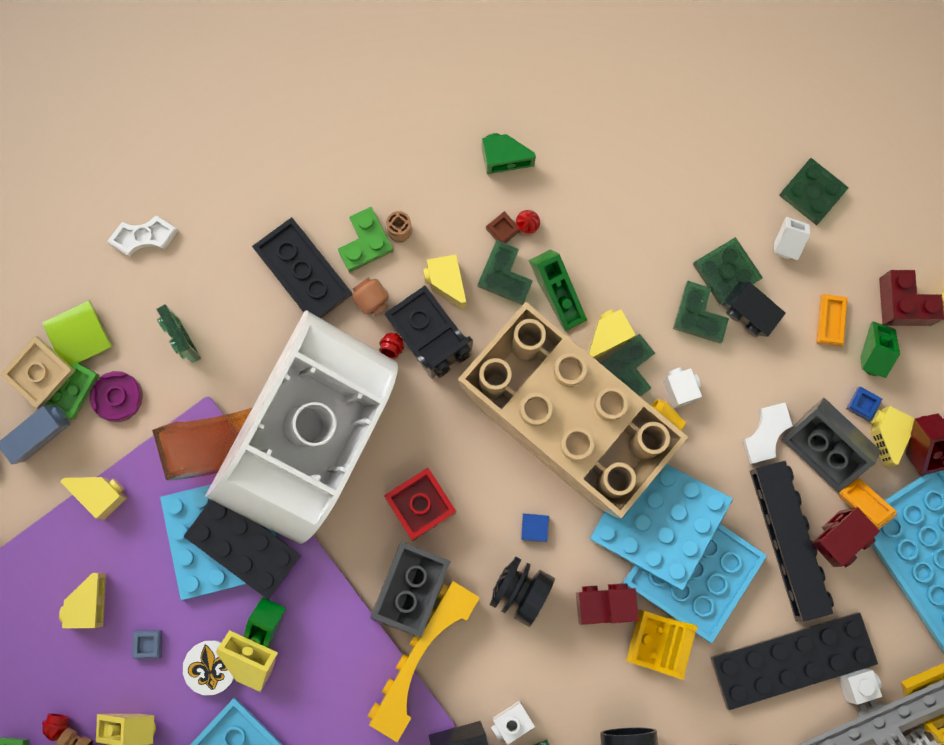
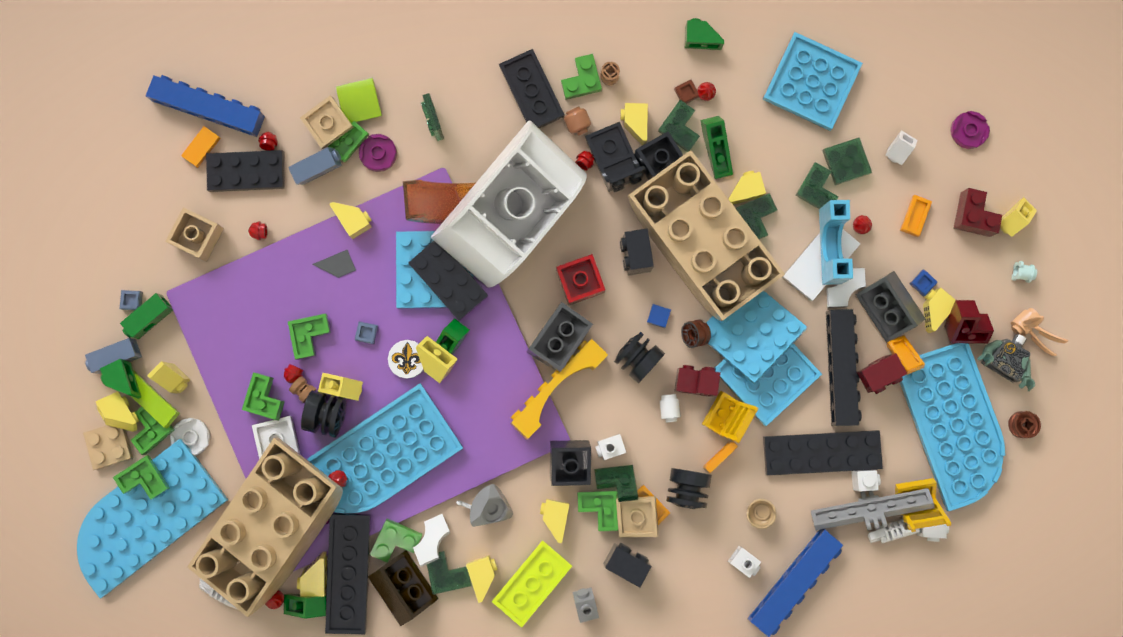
camera: 15 degrees right, 5 degrees up
(58, 663) = (302, 332): none -> bright green plate
(85, 604) = (329, 294): light yellow slope -> none
(89, 559) = (337, 265): none -> dark grey sticker
(134, 237) = (412, 38): white tile -> none
(484, 317) = (658, 154): none -> black brick
(487, 450) = (637, 252): none -> black brick
(578, 649) = (670, 408): none -> white brick
(589, 541) = (695, 333): none -> copper wheel
(658, 180) = (812, 81): none -> medium azure plate
(661, 700) = (720, 457): none -> light orange tile
(669, 413) = (774, 252): yellow cone -> none
(682, 387) = (791, 239): white brick -> none
(727, 405) = (807, 271): none -> white tile
(729, 353) = (832, 219): none -> medium azure arch
(753, 309) = (859, 193): black brick -> none
(767, 347) = (862, 224): none -> red plate
(813, 191) = (928, 115): clear green plate -> none
(870, 197) = (970, 130): none -> magenta tile
(880, 350) = (945, 245): green slope -> none

